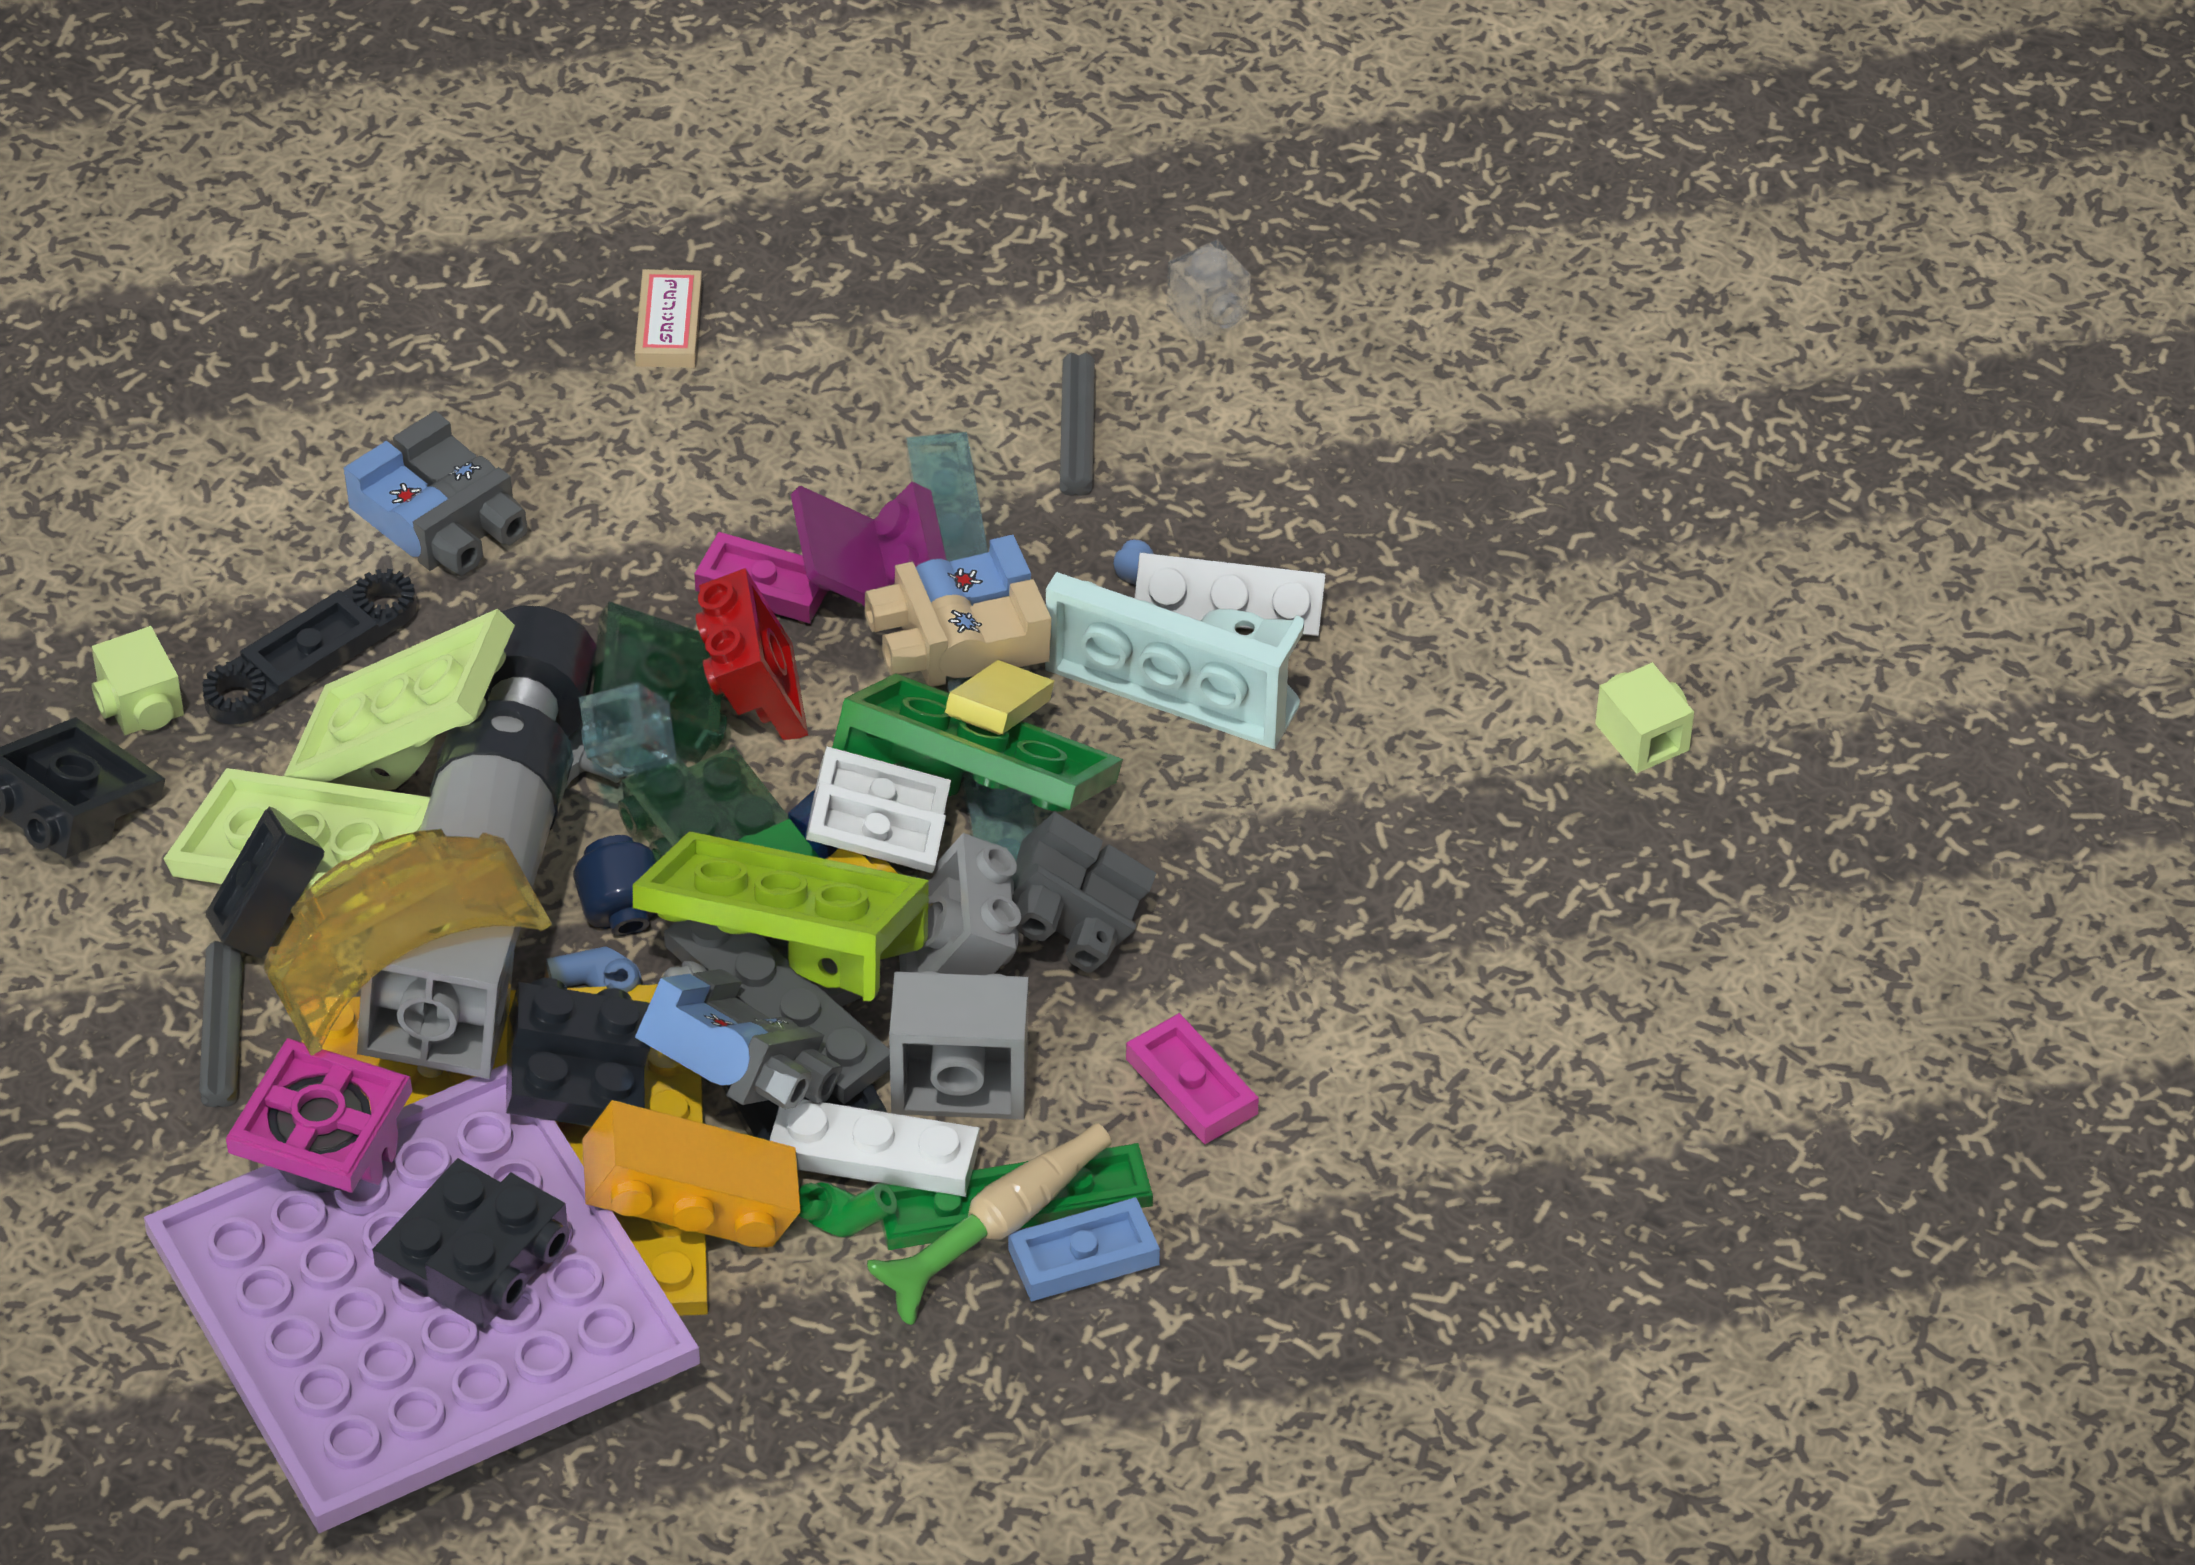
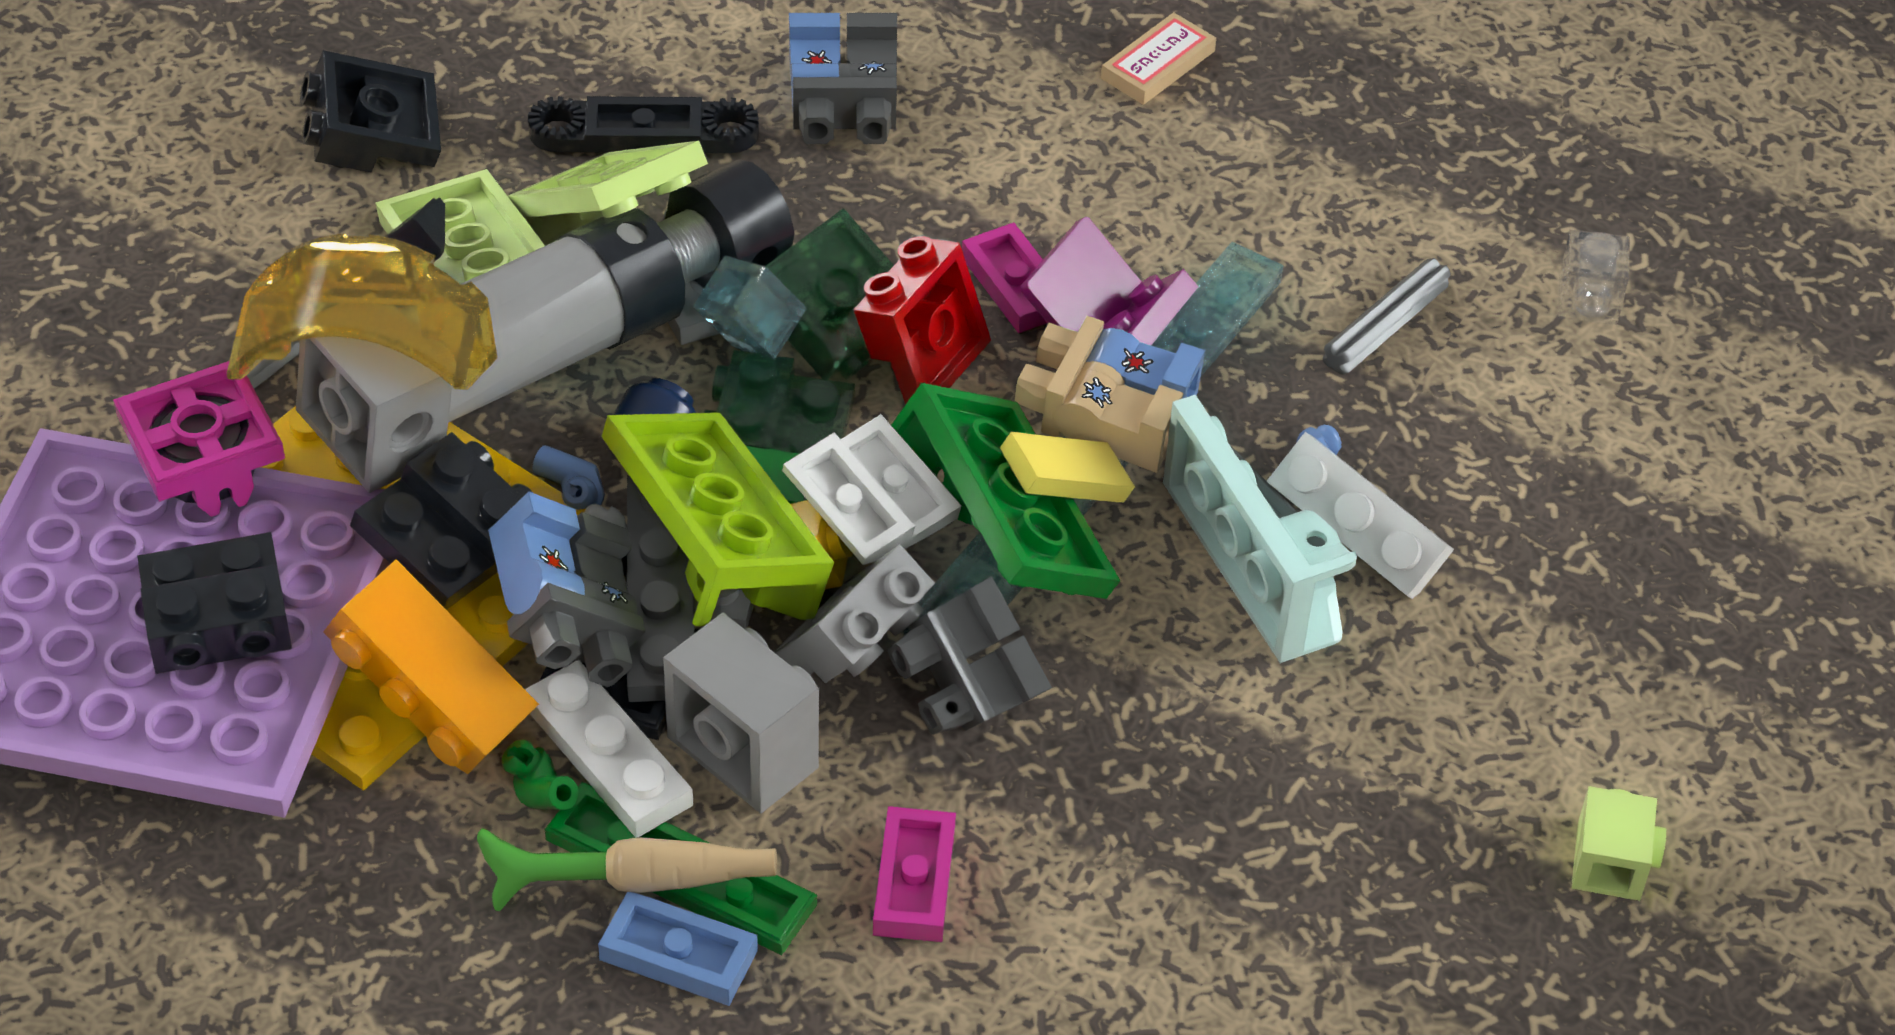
camera: 40 degrees right, 0 degrees up
(136, 682) = (498, 74): yellowish green brick -> none

